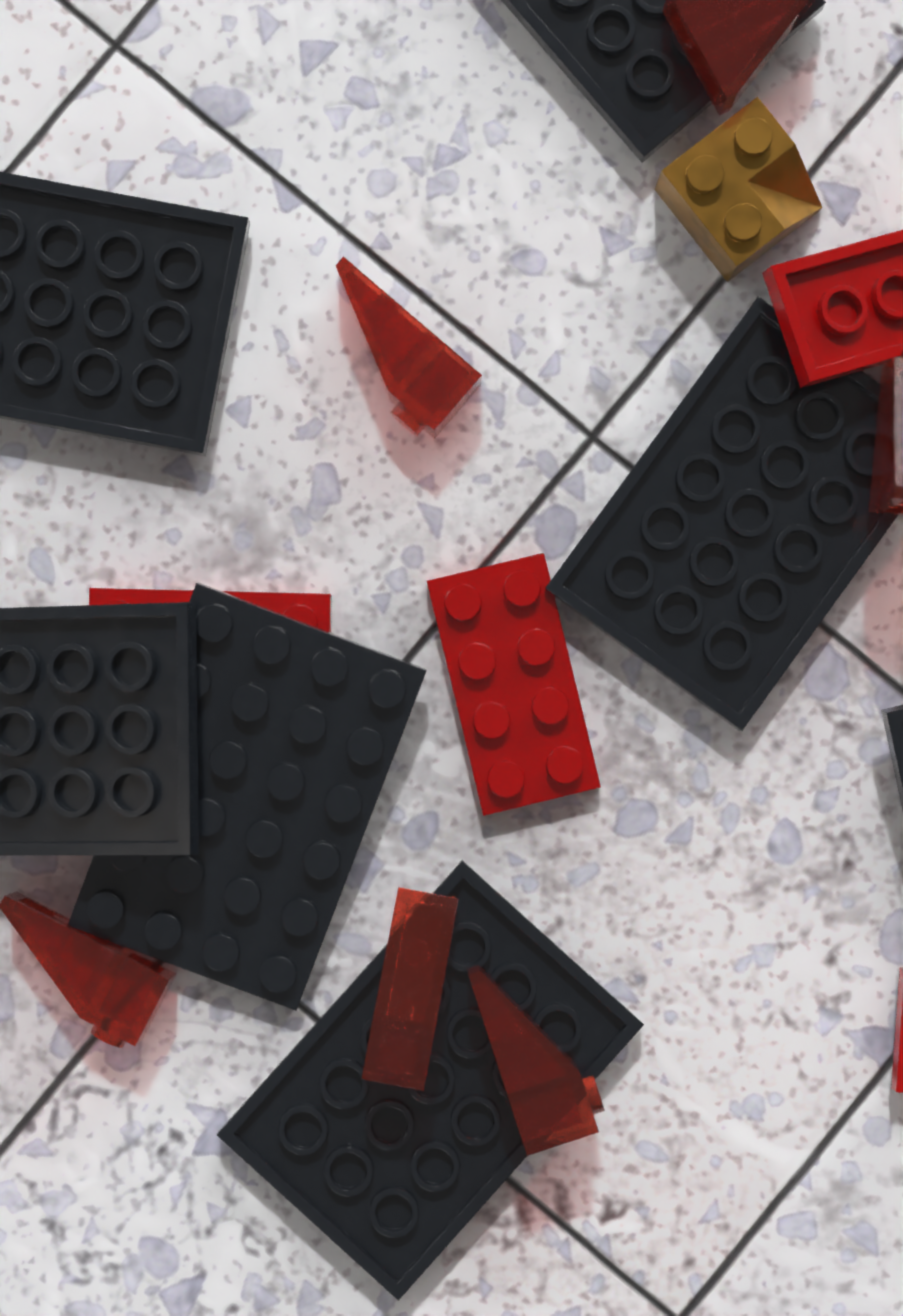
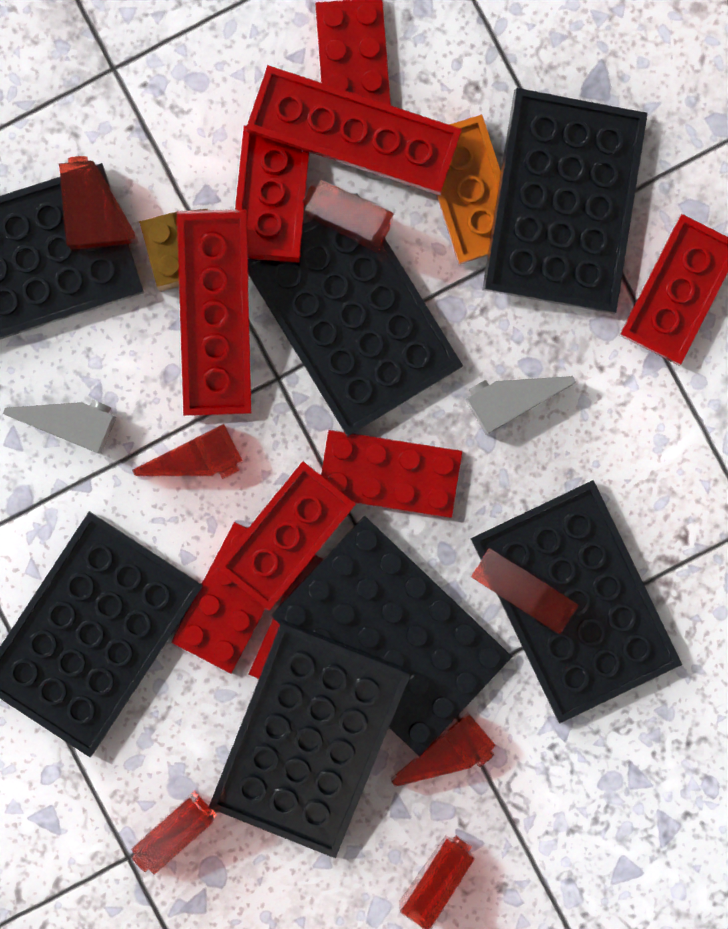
camera: 65 degrees left, 0 degrees up
(204, 511) = (220, 615): none -> red plate
(338, 553) = (286, 535): none -> red plate
(382, 131) = (75, 422): none -> light grey slope
(539, 1077) = (599, 544): clear red slope -> none
(662, 278) = (214, 311): none -> red plate
(718, 829) = (507, 399): none -> light grey slope

